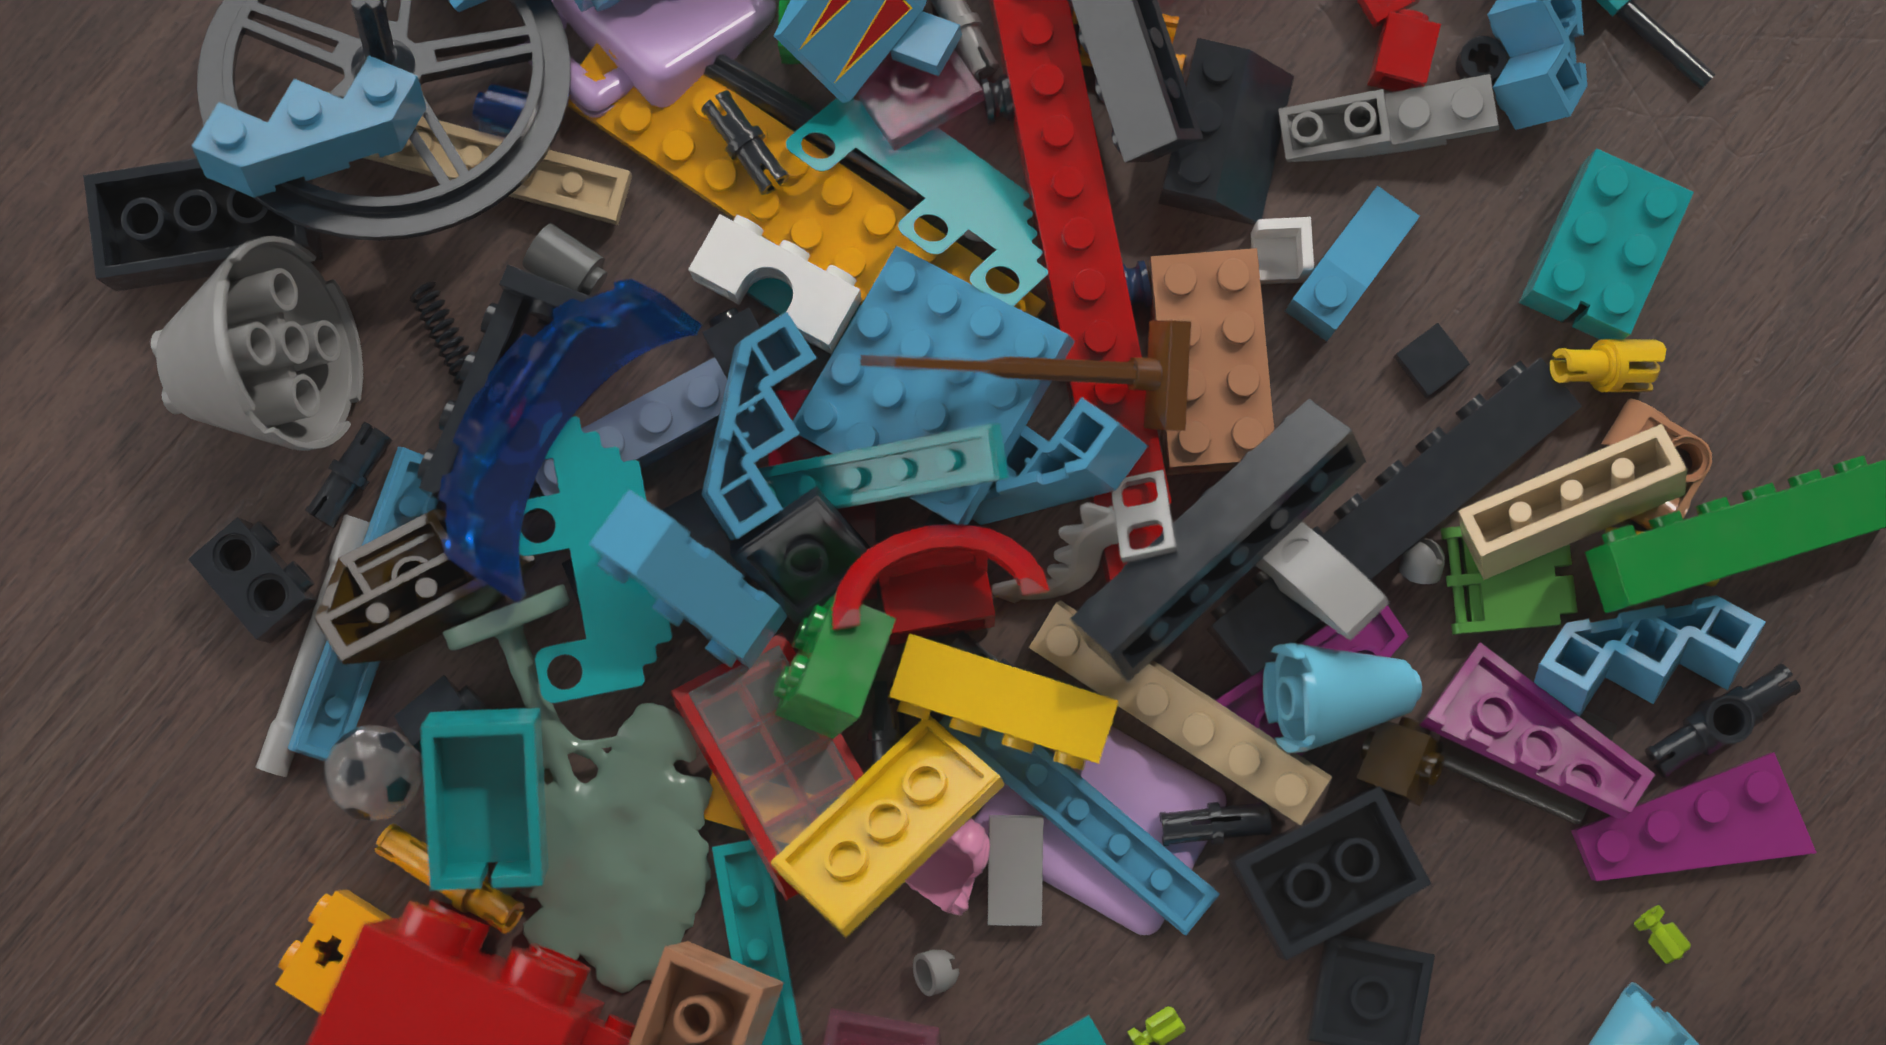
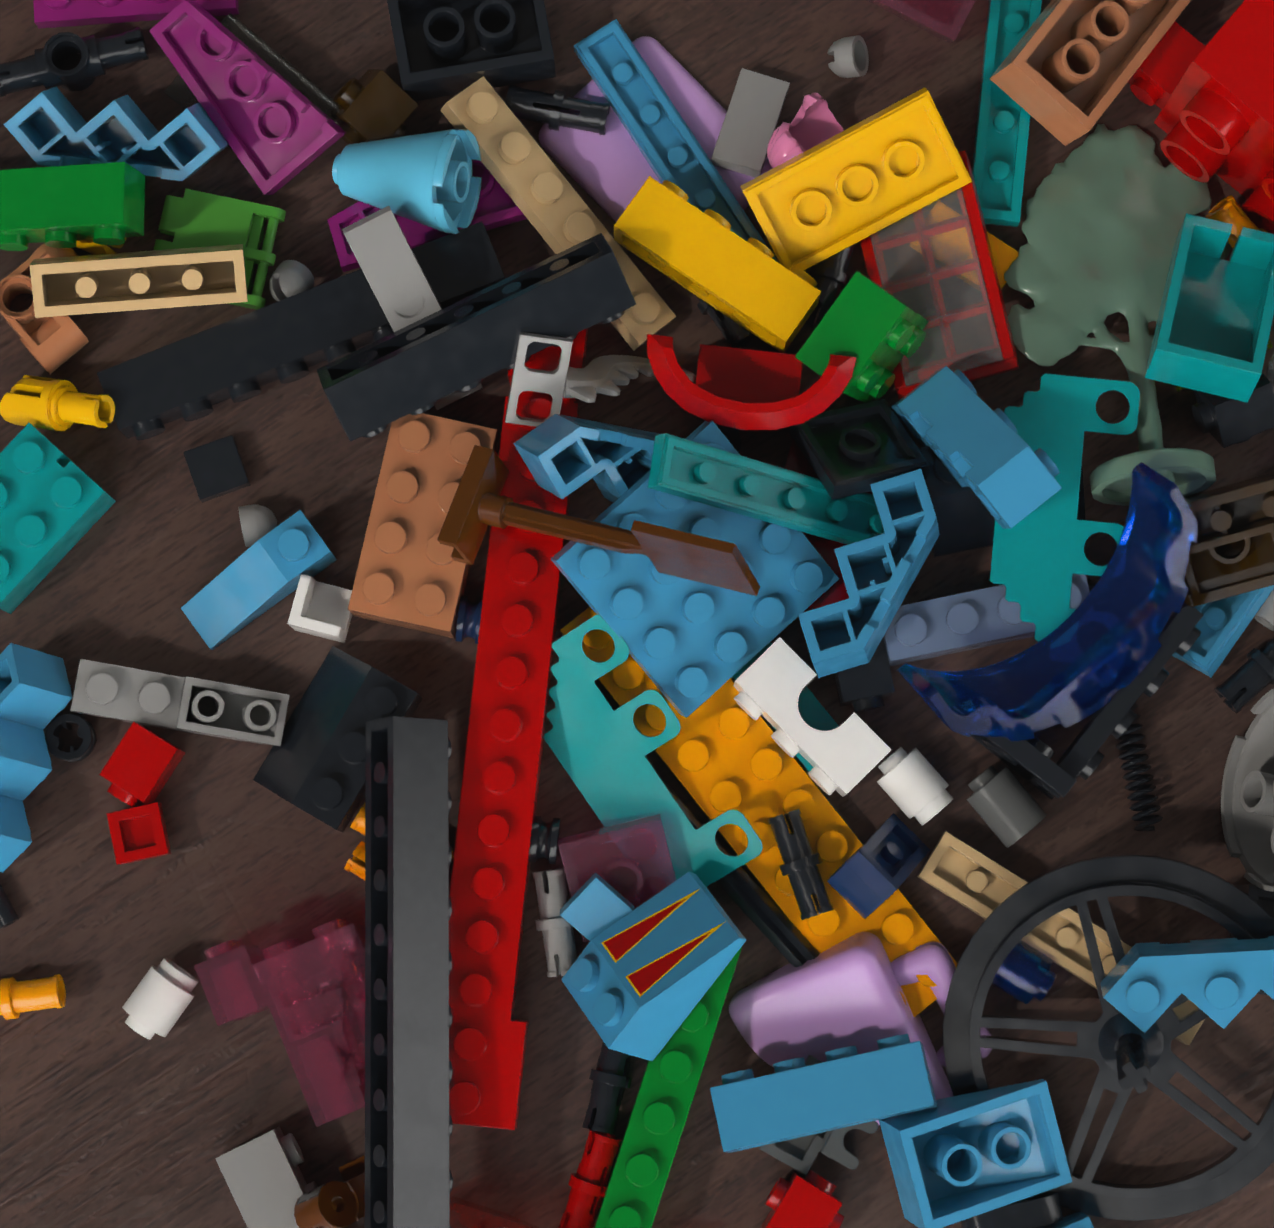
camera: 165 degrees left, 0 degrees up
(657, 256) = (914, 785): none -> white brick
(667, 162) = (879, 866): none -> dark blue plate
(1374, 315) = (255, 522): none -> light grey hinge

